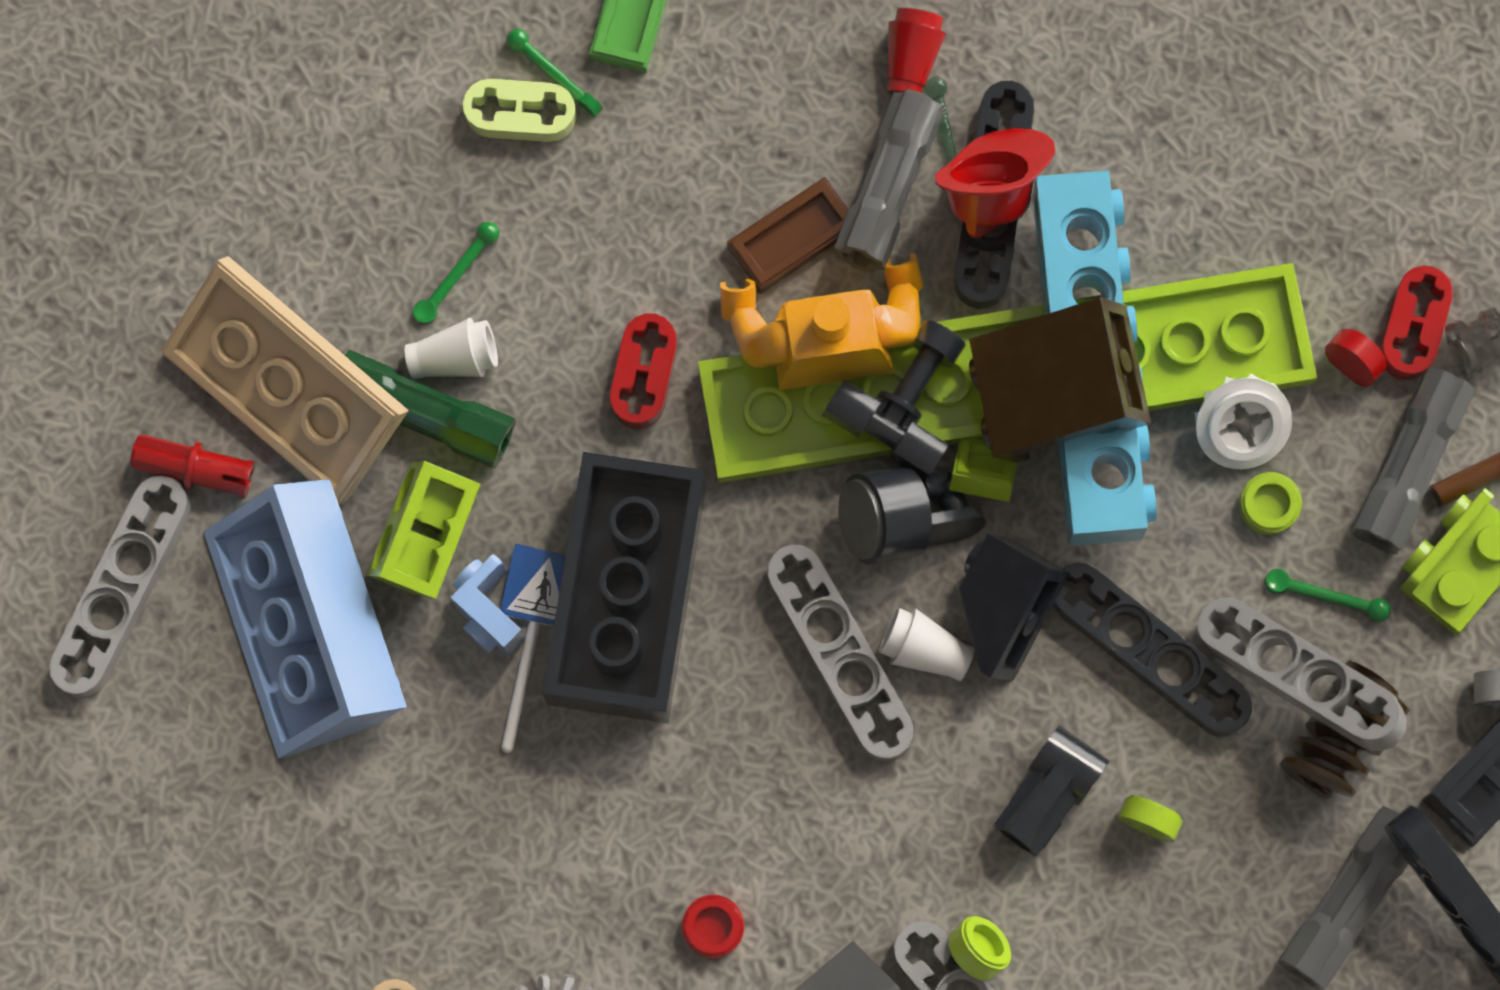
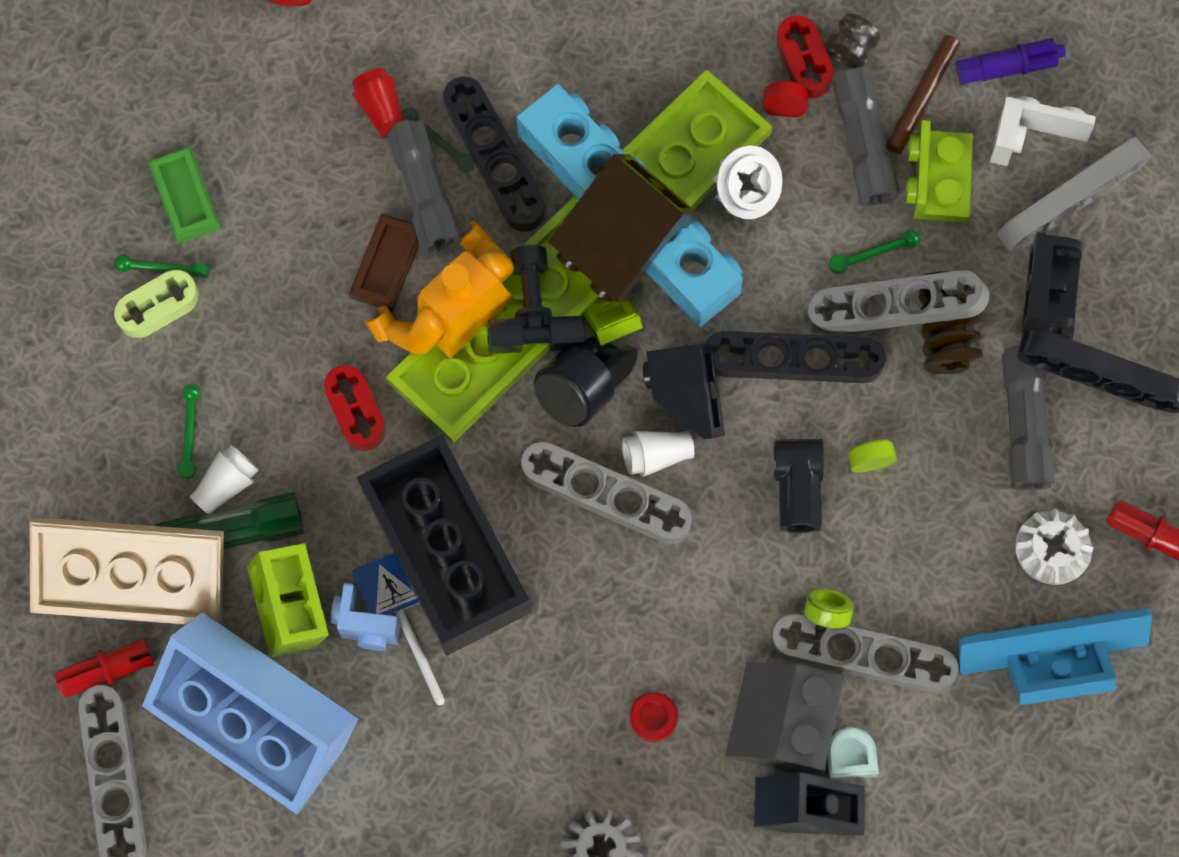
camera: 35 degrees left, 5 degrees down
(995, 177) = (490, 138): red piece -> none
(1270, 503) = (799, 221): lime tile -> none

